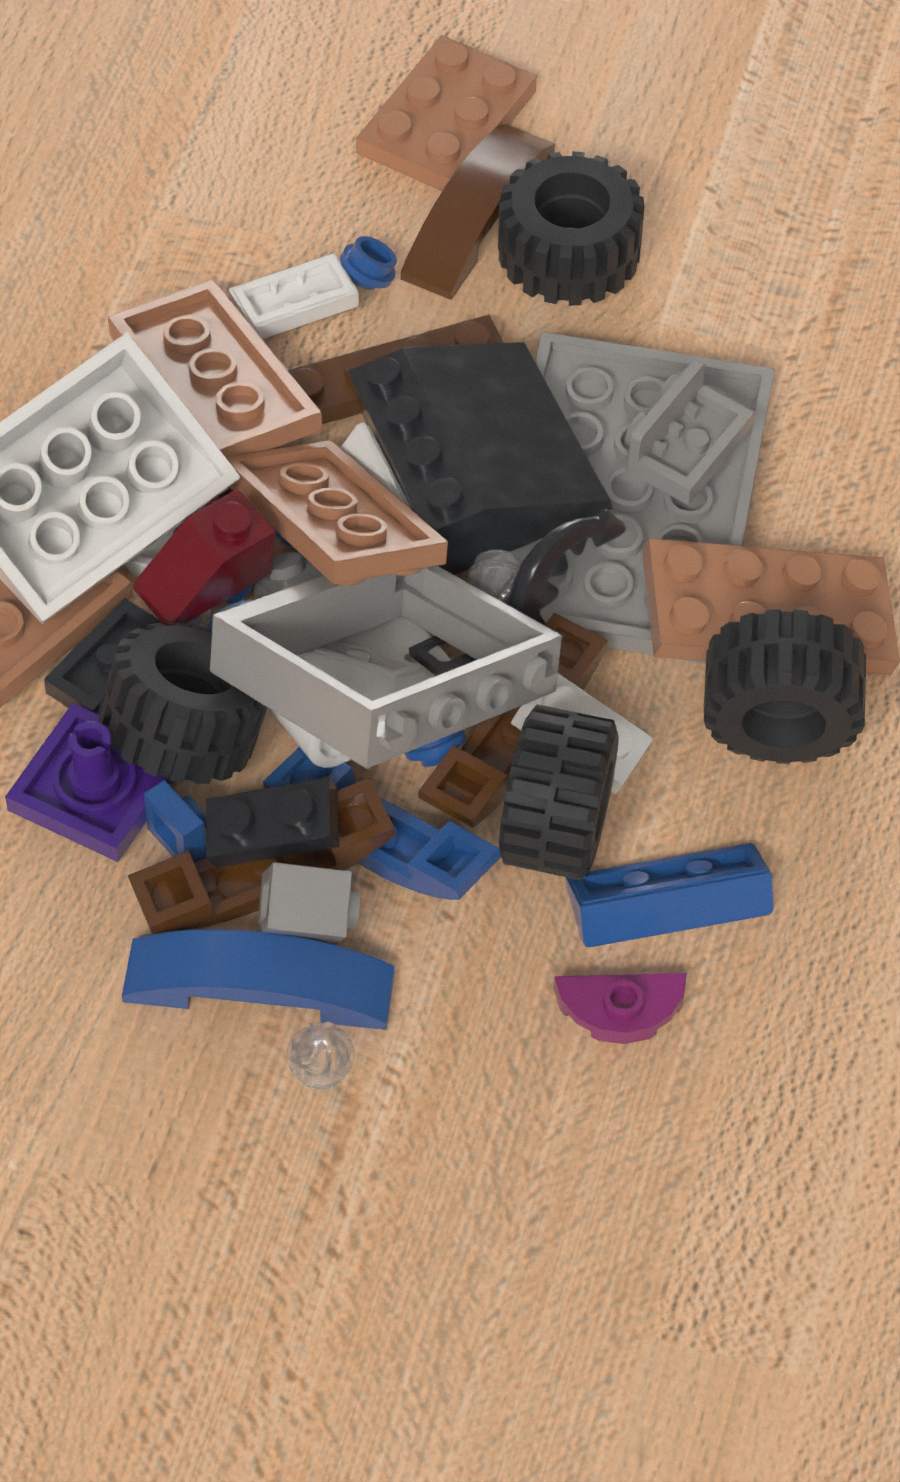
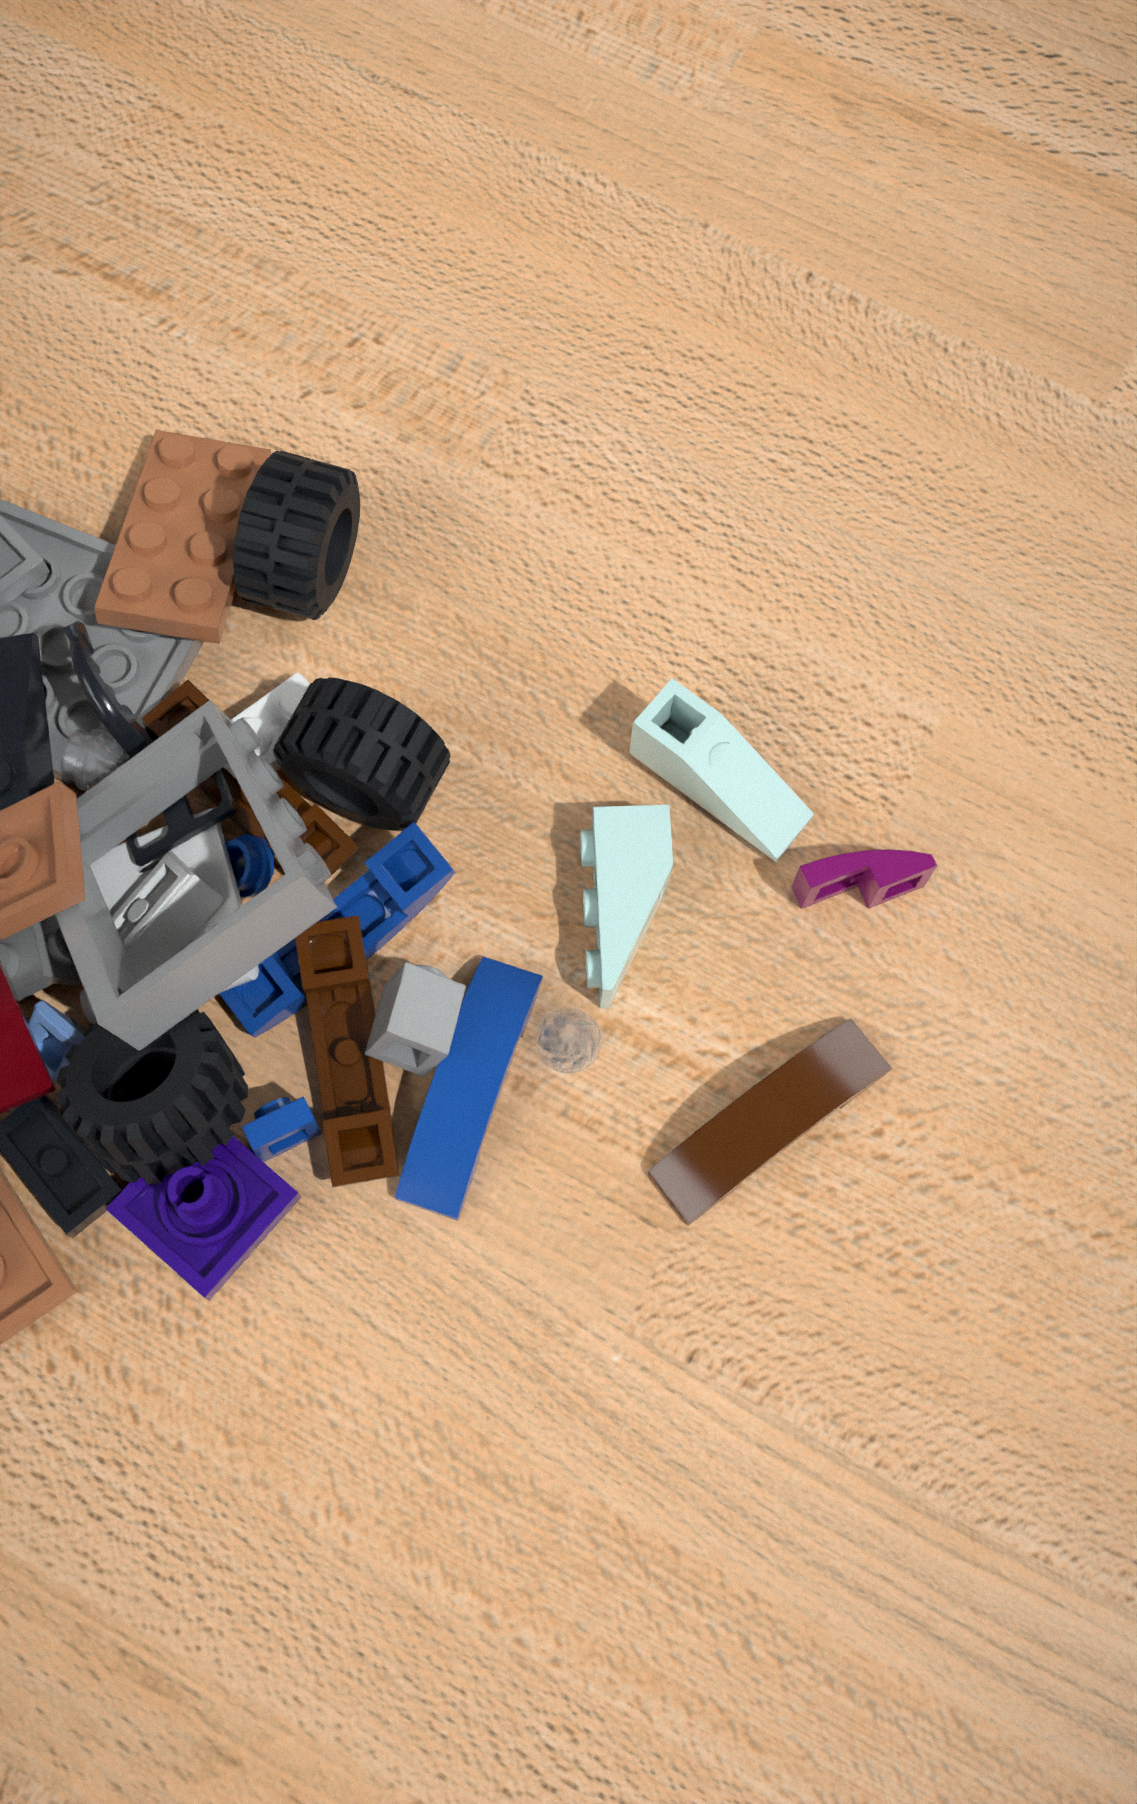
camera: 80 degrees left, 15 degrees up
(272, 822) = (316, 1031): black plate -> none
(288, 1258) = (768, 1120): none -> reddish brown slope
(494, 1074) = (631, 874): none -> light aqua slope
(570, 1311) = (876, 873): none -> magenta slope
(621, 1006) = (570, 768): magenta plate -> none
(648, 1133) = (717, 769): none -> light aqua slope
(671, 895) = (463, 695): blue slope -> none

